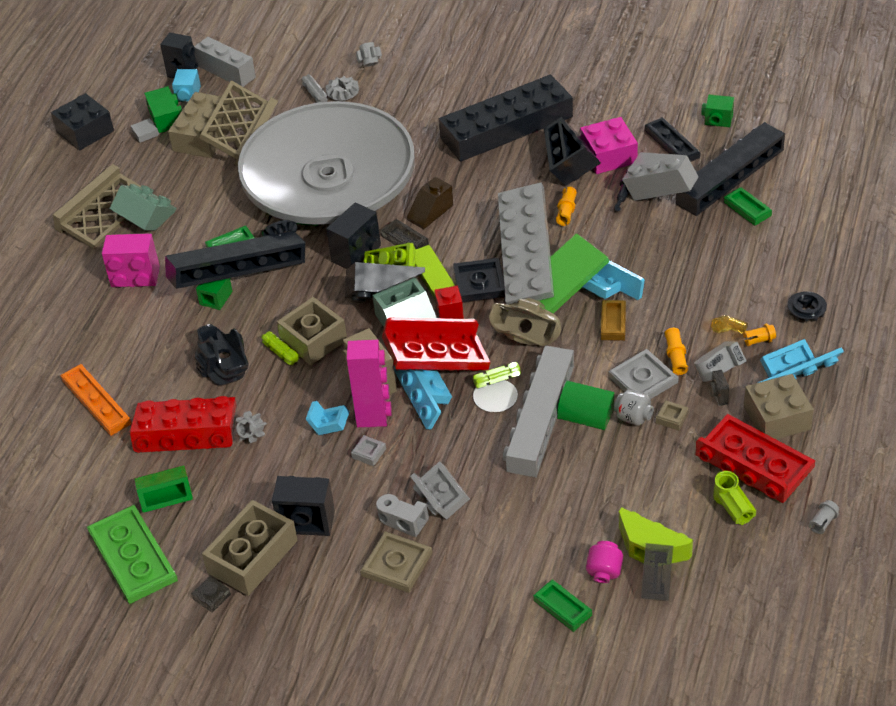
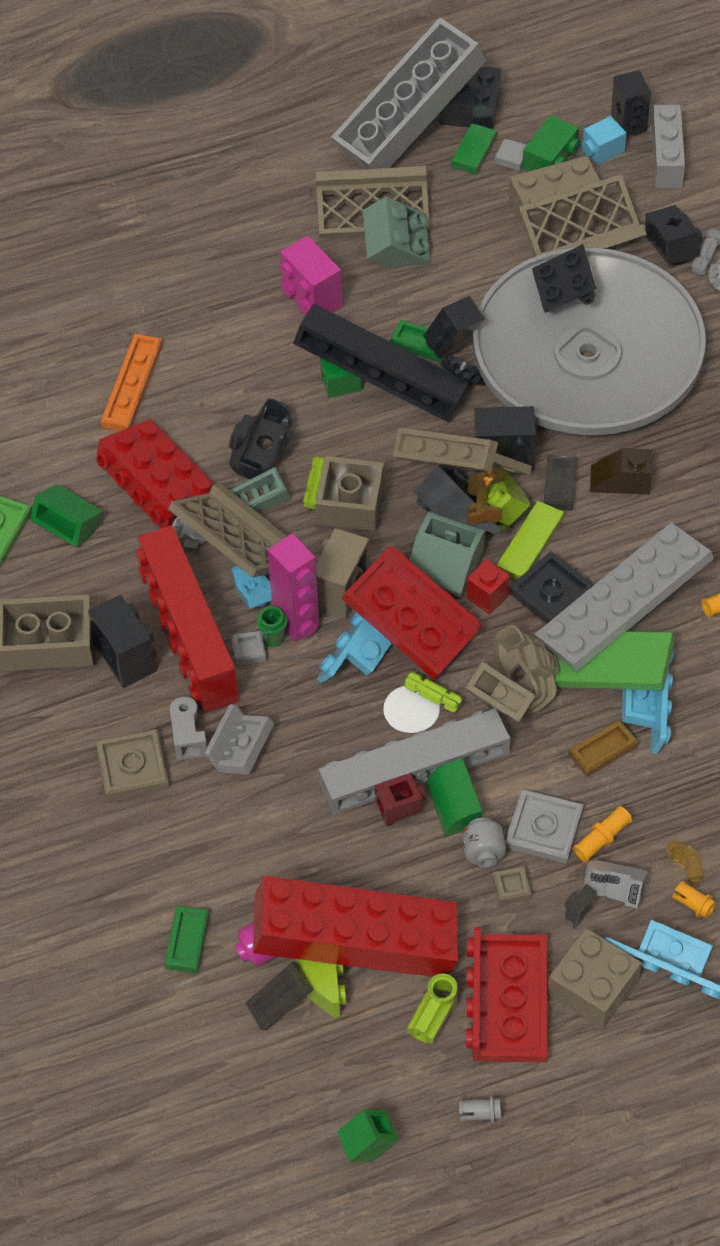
camera: 50 degrees right, 10 degrees up
(58, 138) = (409, 97): none -> light grey brick
(119, 144) = (474, 148): none -> green tile
(250, 211) = (453, 327): none -> black brick
(256, 364) = (260, 482): none -> sand green slope
(278, 141) = (565, 279): none -> black hinge
(282, 397) = (231, 517): none -> dark tan fence
(291, 91) = (673, 234): none -> black brick
(349, 251) = (453, 451): none -> dark tan fence
(350, 463) = (186, 619): none -> red brick
(371, 421) = (272, 625): none -> green cone
(405, 265) = (479, 485): none -> pearl gold piece
(541, 332) = (499, 692): none -> dark tan slope
(561, 433) = (399, 798): none -> dark red brick
(647, 497) = (354, 927): none -> red brick
(802, 582) = (367, 1135): none -> green brick

